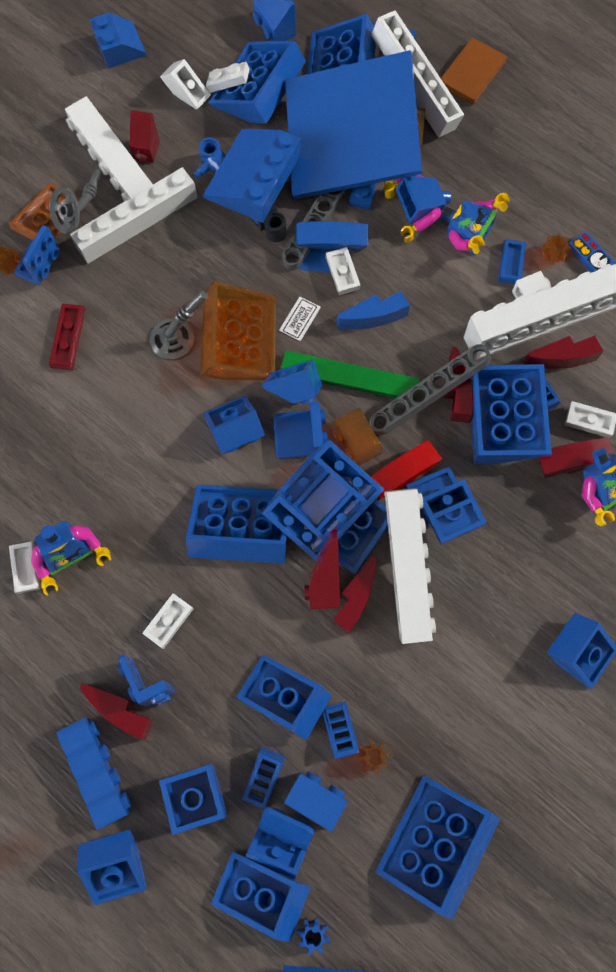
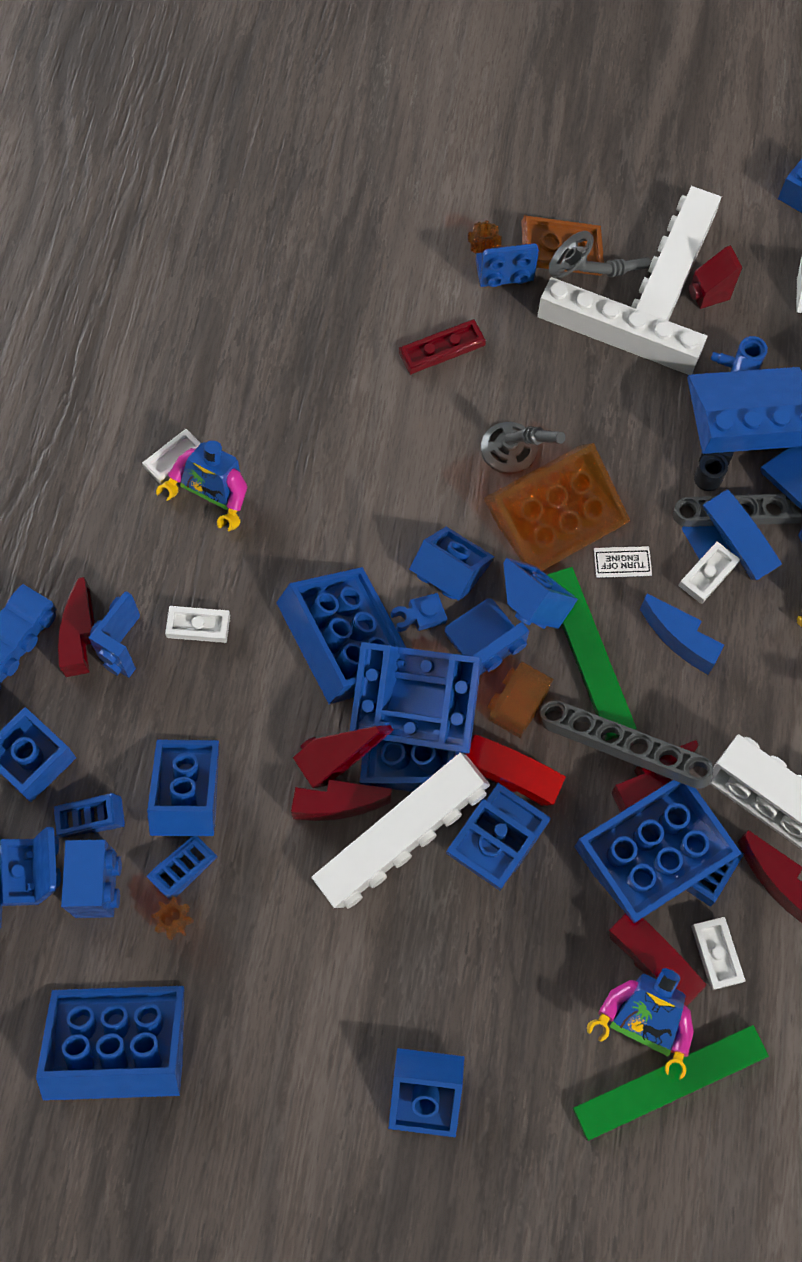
camera: 55 degrees right, 5 degrees down
(256, 463) = (422, 611): none -> blue plate

